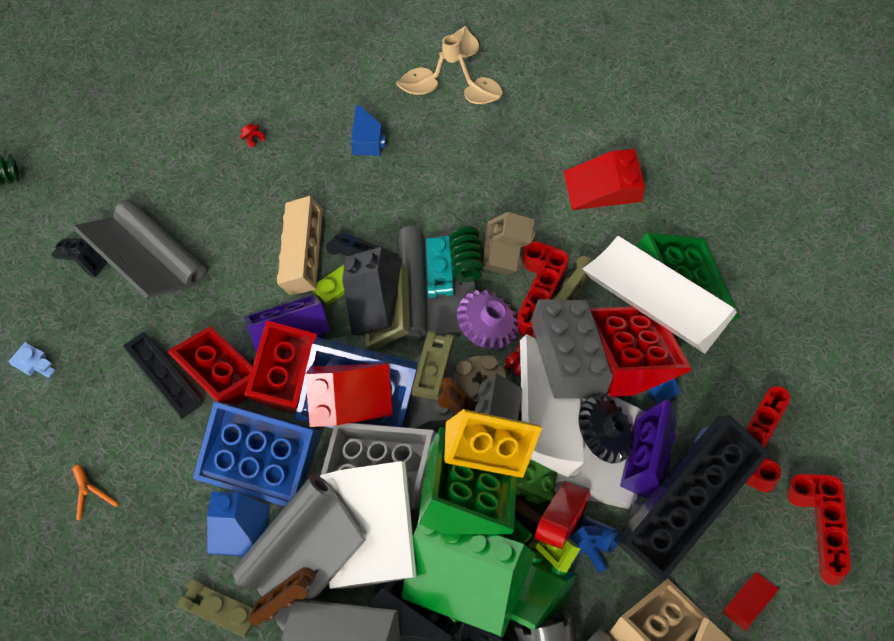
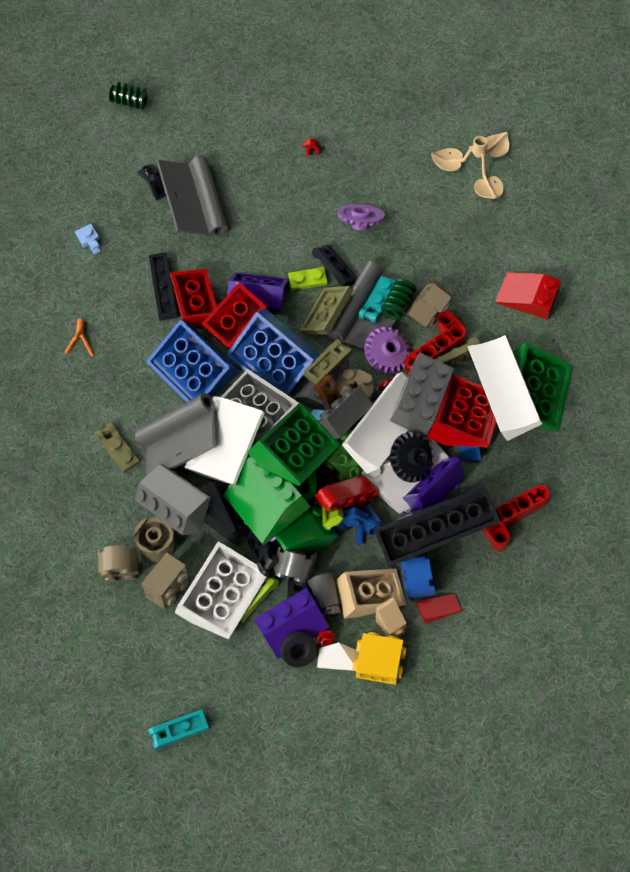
camera: 30 degrees right, 5 degrees up
(234, 523) = (153, 400): blue slope -> none
(282, 596) = (155, 458): reddish brown plate -> none
(300, 246) = (296, 241): tan brick -> none
(348, 393) = (263, 354): red slope -> none
(360, 183) = (361, 215): none -> medium lavender gear
(366, 134) = (387, 182): blue slope -> none
(371, 289) = (321, 293): black slope -> none
(490, 442) = (320, 426): yellow slope -> none
(709, 574) = (418, 577): none -> blue brick
(825, 528) = (516, 591): red beam -> none

